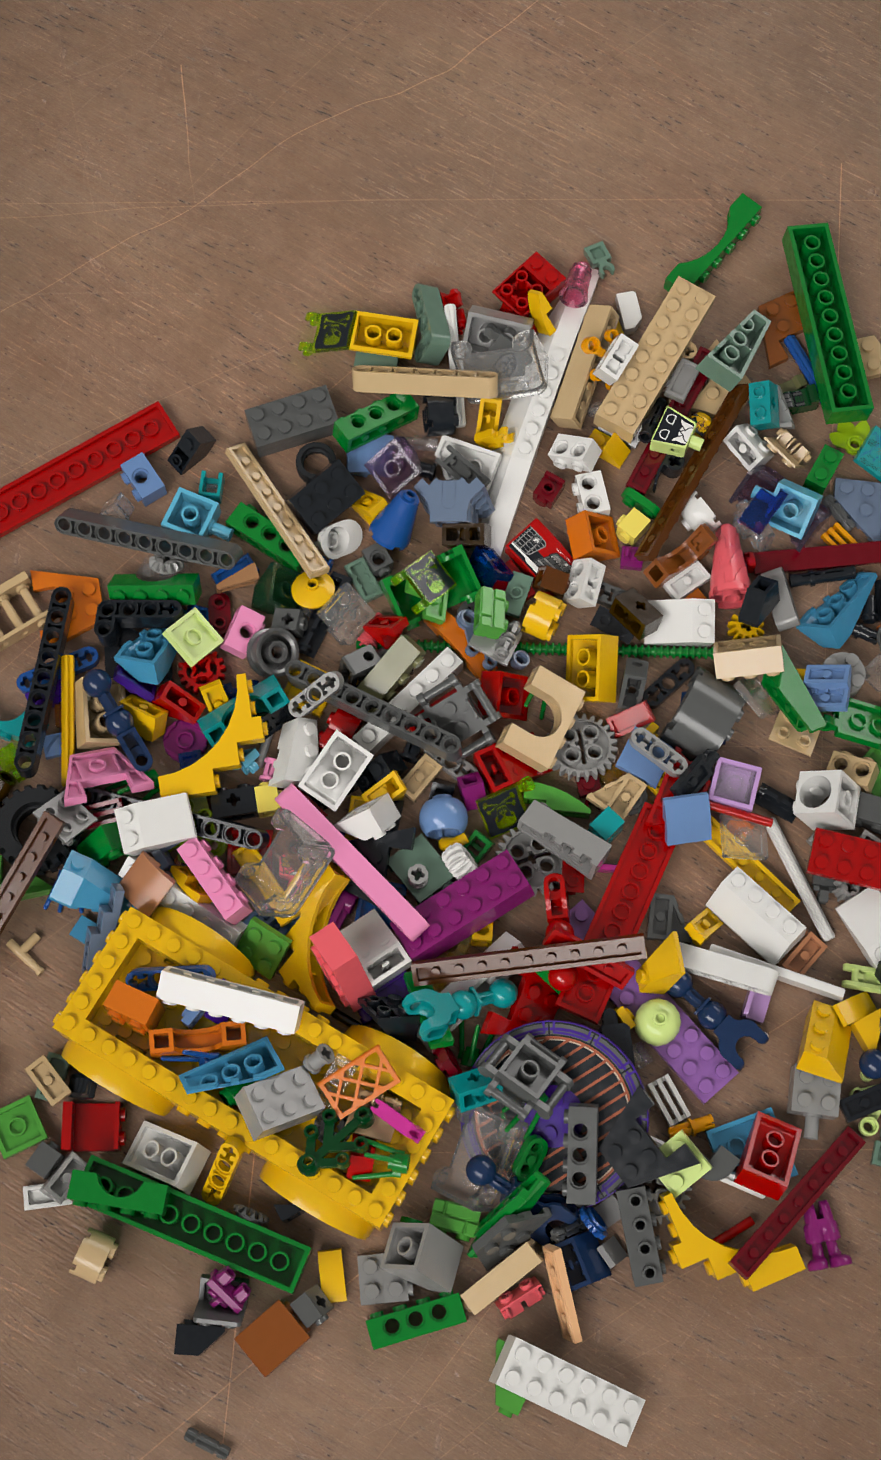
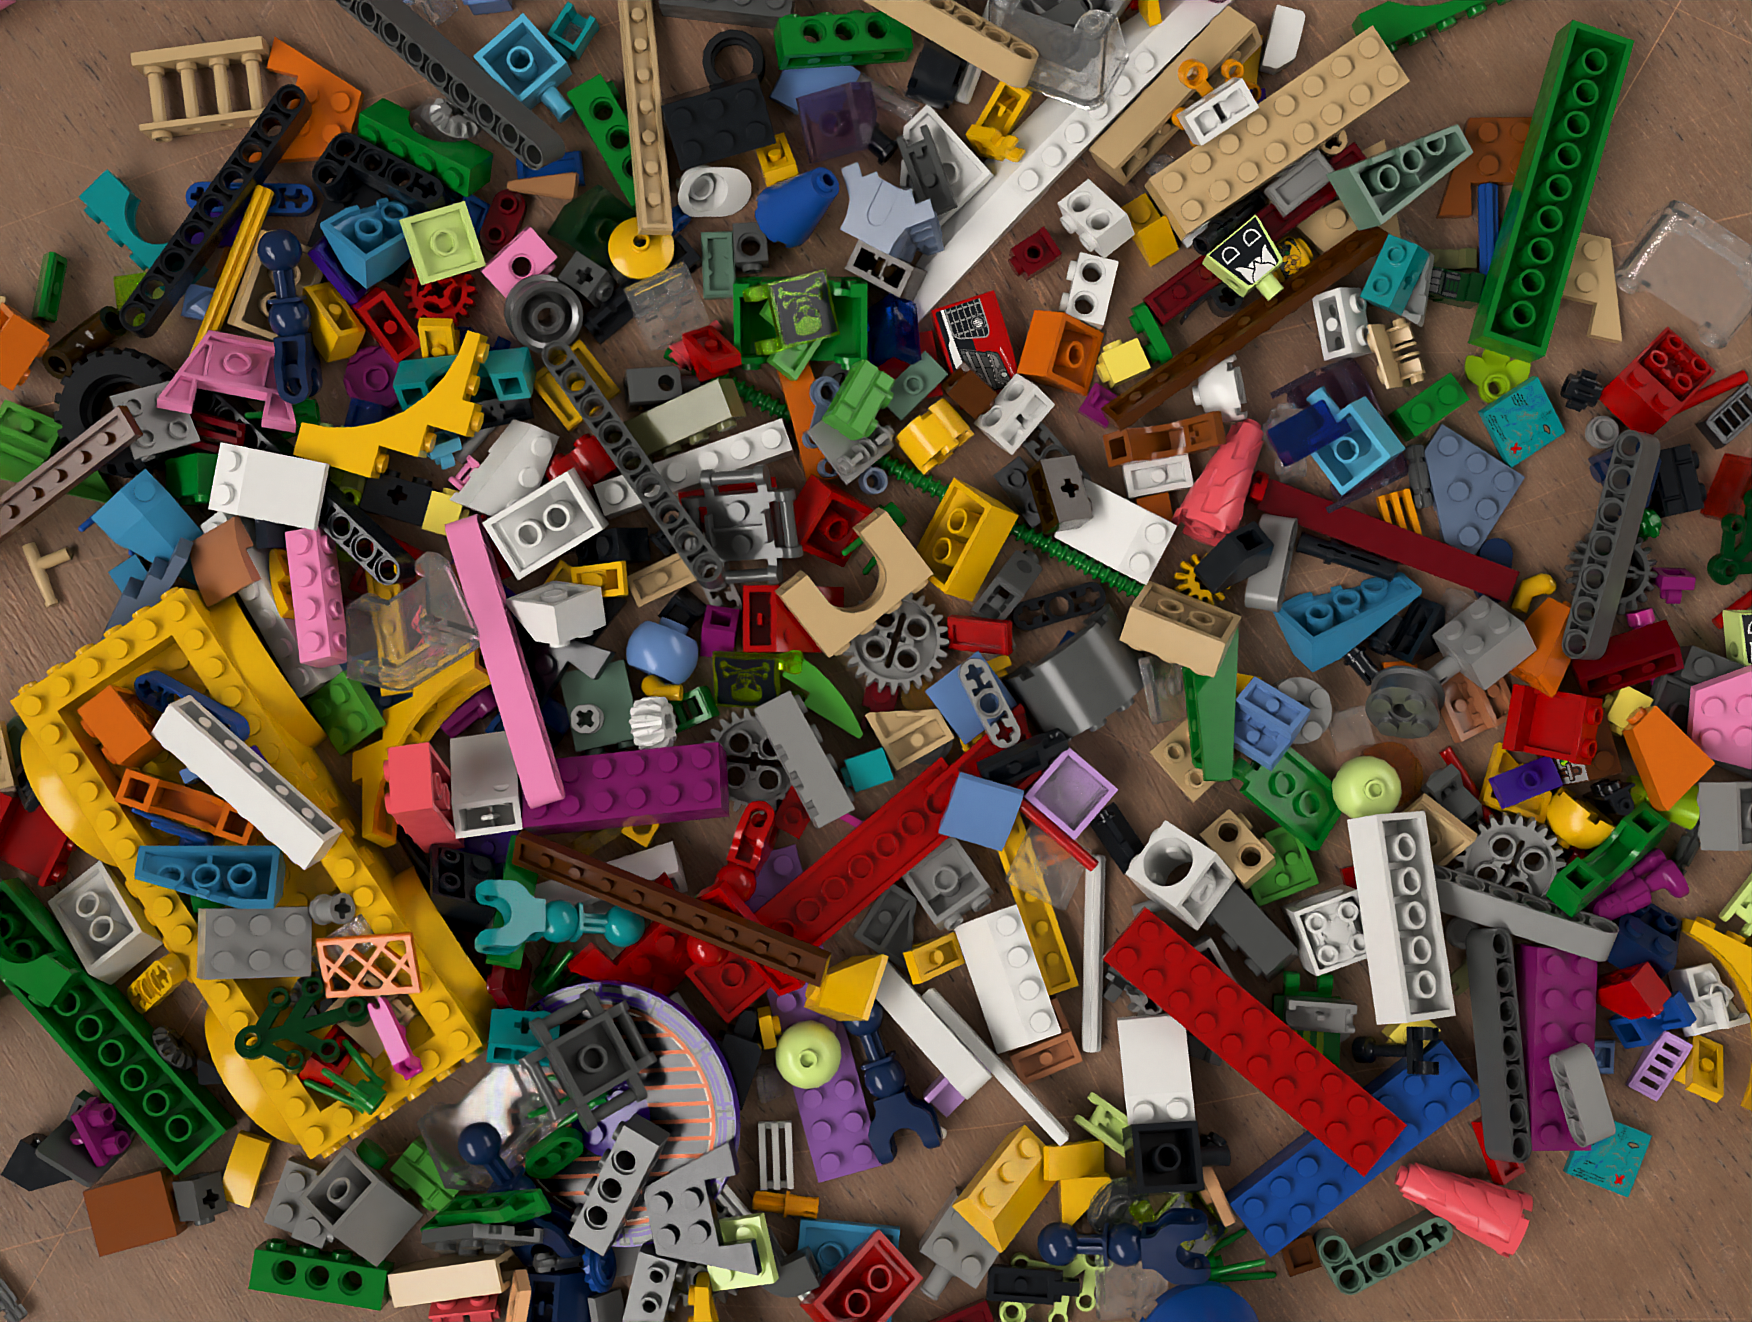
camera: 25 degrees right, 15 degrees up
(325, 692) = (577, 411): light grey beam -> none
(689, 877) = (948, 885): none -> light grey plate

